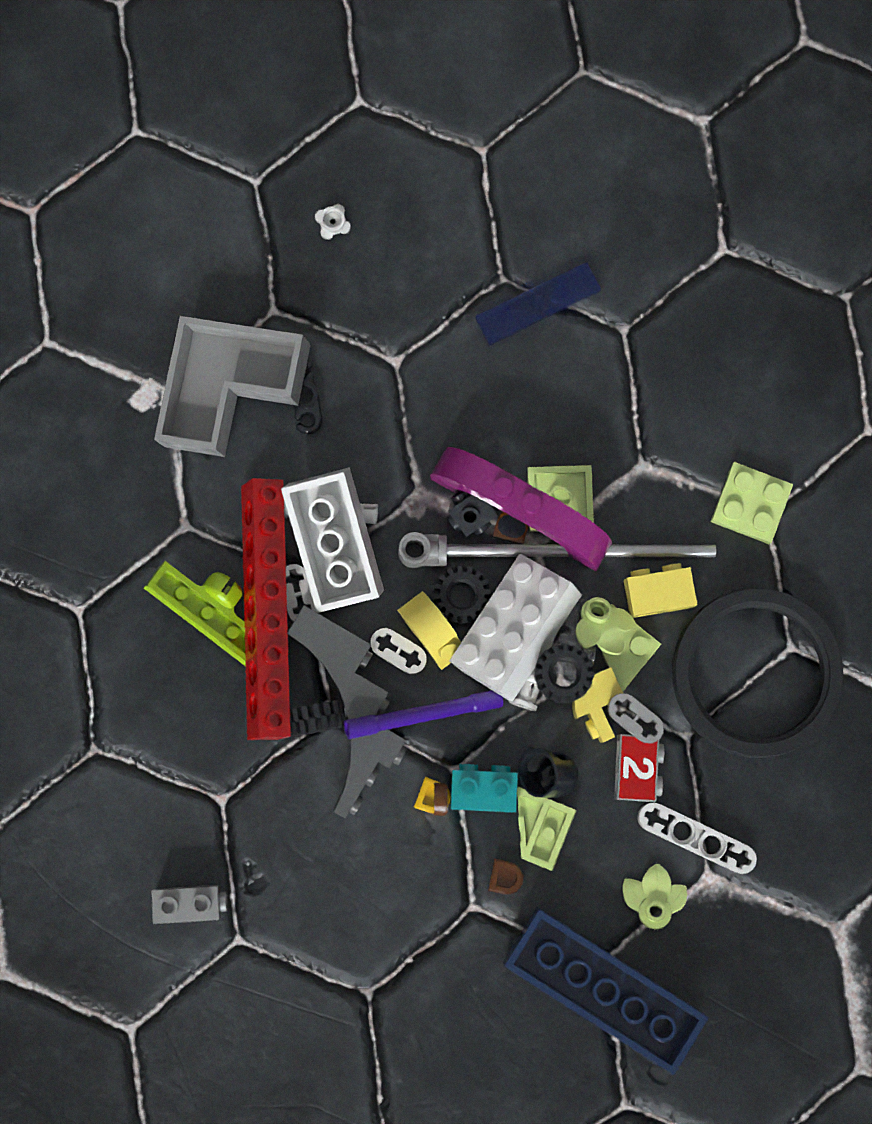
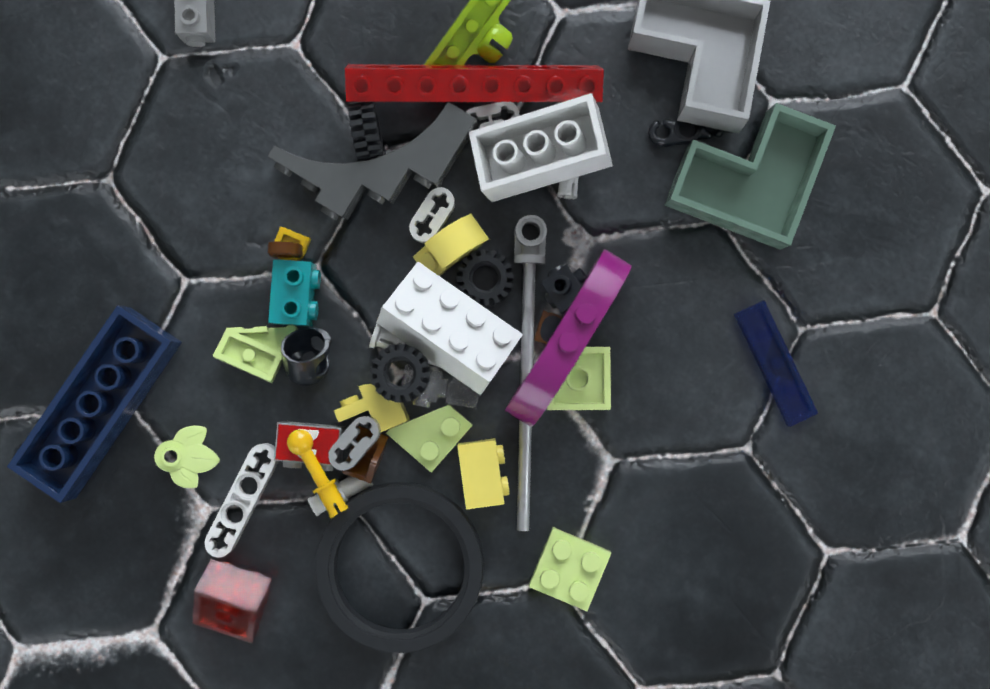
camera: 90 degrees right, 5 degrees up
(334, 212) = (871, 156): white plate -> none
(370, 318) = (761, 194): none -> sand green piece
(373, 724) = (357, 185): dark purple piece -> none
(505, 877) = (211, 313): reddish brown tile -> none
(603, 630) = (443, 415): yellowish green plate -> none
(638, 773) = (300, 443): none -> yellow pin
(658, 705) = (368, 465): none -> reddish brown panel
(684, 736) = (347, 489): none -> white pin
(800, 843) = (230, 600): none -> slope

